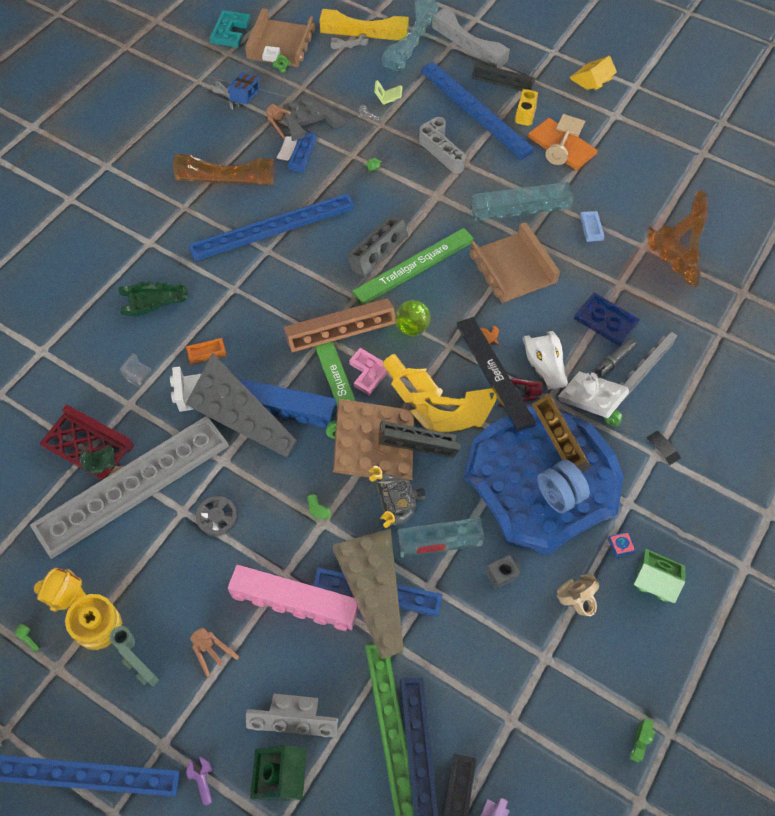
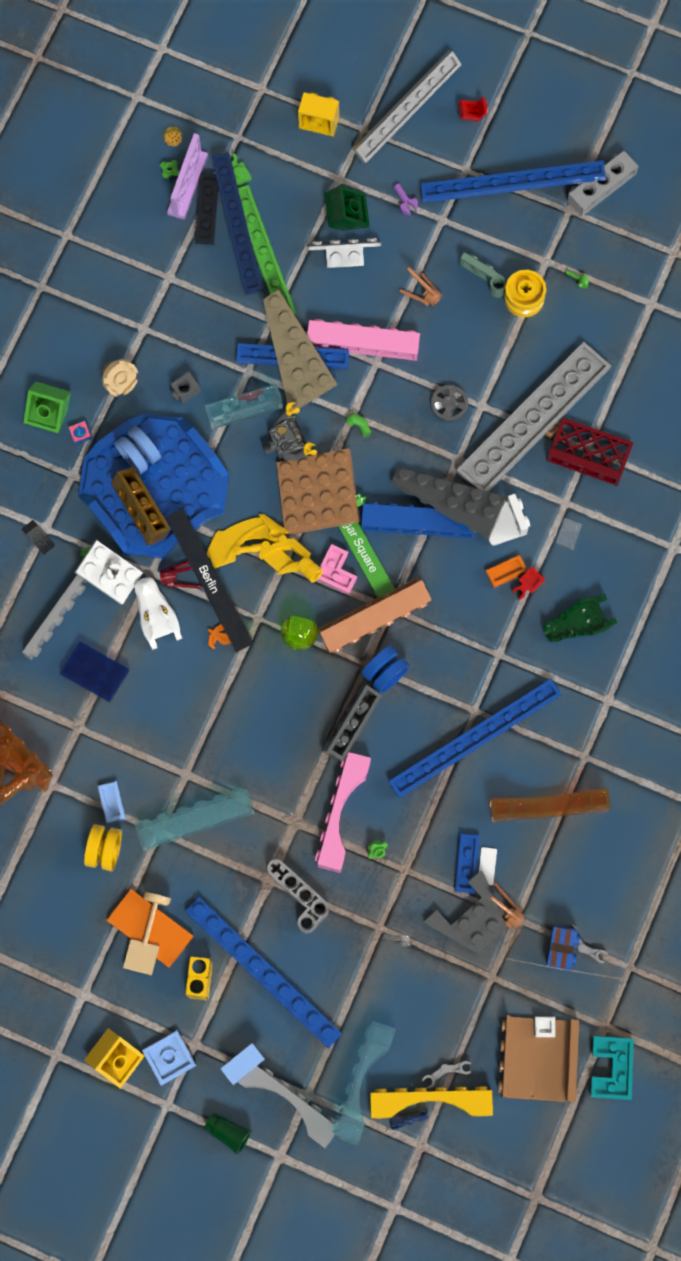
camera: 175 degrees right, 15 degrees up
(59, 589) = (563, 312): yellow piece -> none
(98, 460) = (569, 427): clear green bracket -> none
(187, 335) = (530, 581): none -> red plate
(280, 58) = (527, 1006): bright green plate -> none
(339, 275) = (385, 669): none -> blue wheel
(389, 95) = (377, 974): yellowish green bracket -> none
(410, 166) = (354, 773): none -> bright pink arch
(412, 266) = (307, 713): bright green tile -> none
(415, 442) = (275, 490): pearl dark grey fence -> none
(498, 49) = (242, 1064): none -> light blue tile
(502, 77) = (230, 1029): pearl dark grey fence -> none
(509, 25) = (227, 1132): none -> dark green plant
(515, 264) = (199, 730): medium nougat panel -> none
(551, 73) = (169, 1058): none -> light blue tile
(600, 184) = (103, 847): none -> yellow wheel
(611, 361) = (89, 621): dark grey pin -> none
(643, 736) = (63, 277): bright green plate -> none

